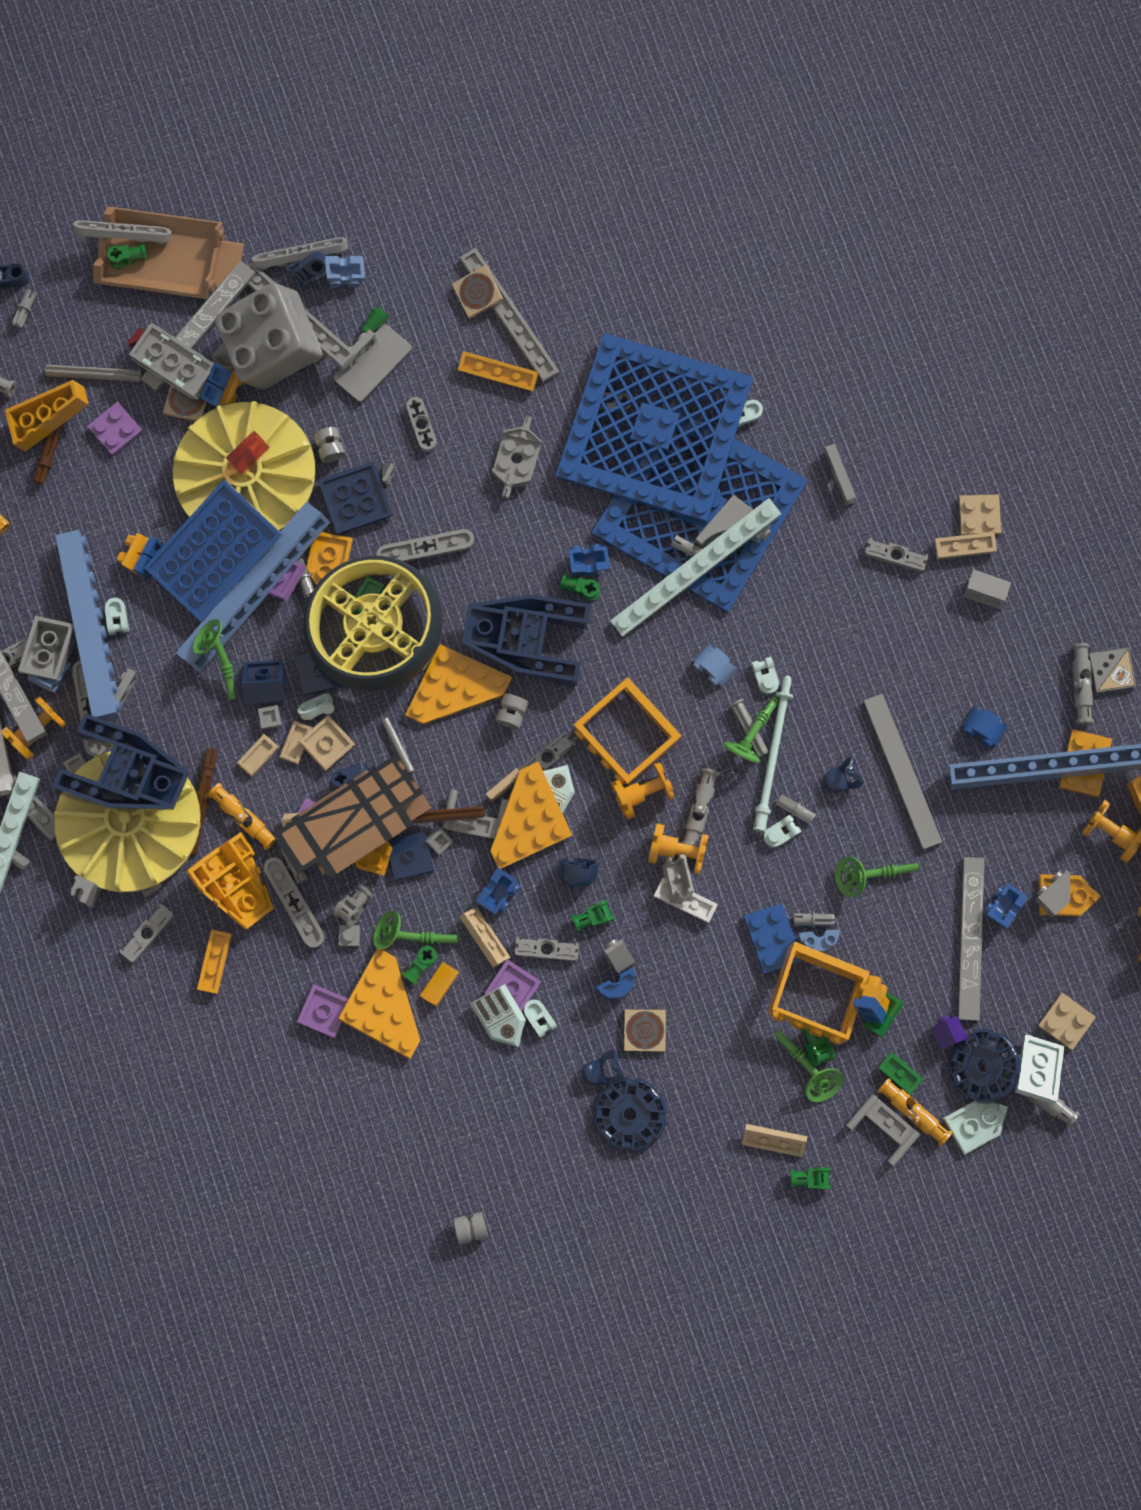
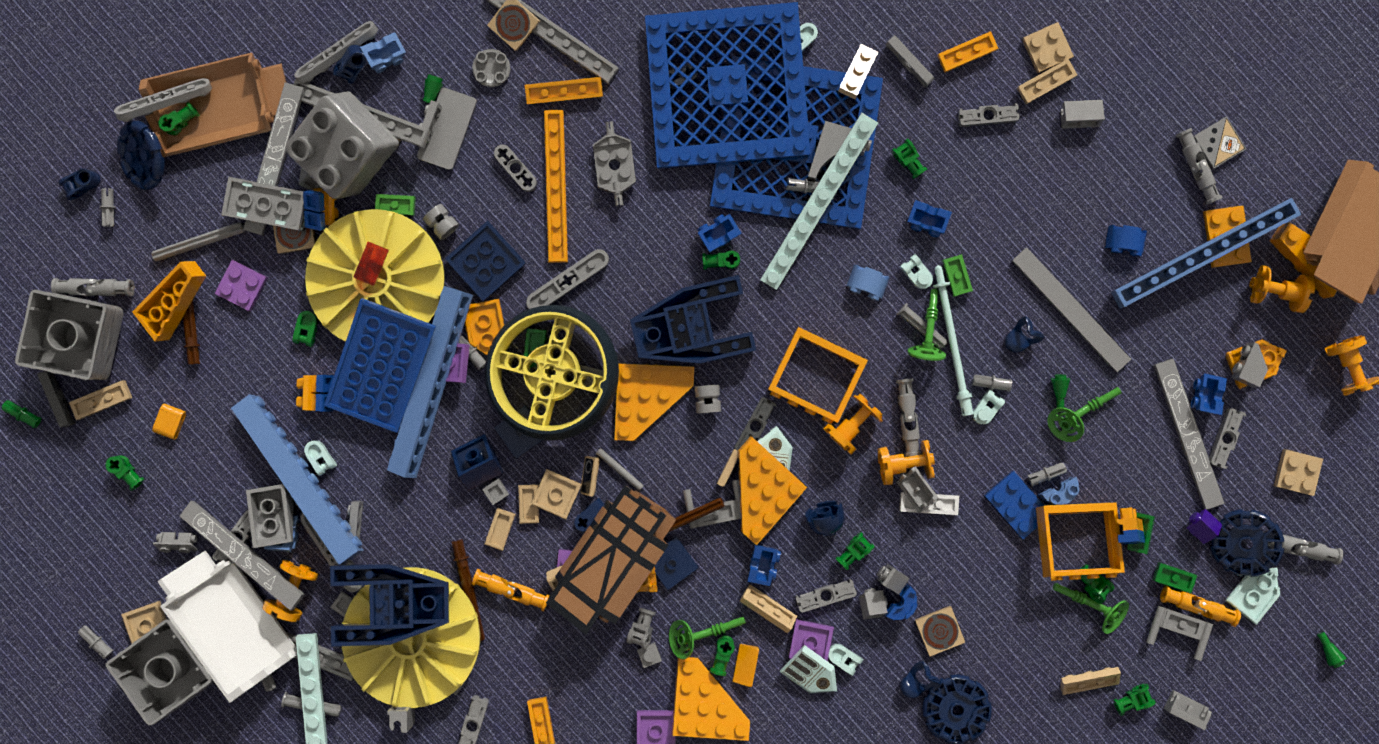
camera: 25 degrees left, 10 degrees up
(75, 272) = (140, 155): none -> dark blue plate
(135, 337) = (221, 194): dark red slope -> none
(163, 487) = (308, 321): none -> green plate
(211, 639) = (414, 449): bright green dish -> none
(233, 881) = (526, 654): light orange wedge -> none
(297, 412) = (396, 203): none -> bright green plate
(303, 920) = (604, 659): light grey piece -> none
(316, 706) = (533, 465): light aqua plate -> none
(367, 739) = (590, 475): none -> slope
(387, 473) = (504, 224): light grey slope -> none
(438, 324) = (491, 67): none -> light grey dish
(438, 840) = (691, 538): light grey slope -> none
(452, 457) = (556, 186): none -> light orange tile
(589, 974) = (873, 604): none -> light grey brick
(785, 463) = (857, 71): none -> plate
(796, 627) = (928, 219): none -> blue cylinder
(802, 564) = (909, 158): none -> green connector
(803, 693) = (957, 275): none -> bright green plate
(861, 840) = (1060, 387): none -> green cone
(861, 1211) = (1188, 709): none -> light grey hinge
(899, 488) = (967, 52): none -> light orange plate
(997, 967) = (1230, 425): none -> light grey piece
(1030, 1217) = (1333, 654): none -> green cone
(1040, 1069) = (1297, 526): light aqua plate -> none

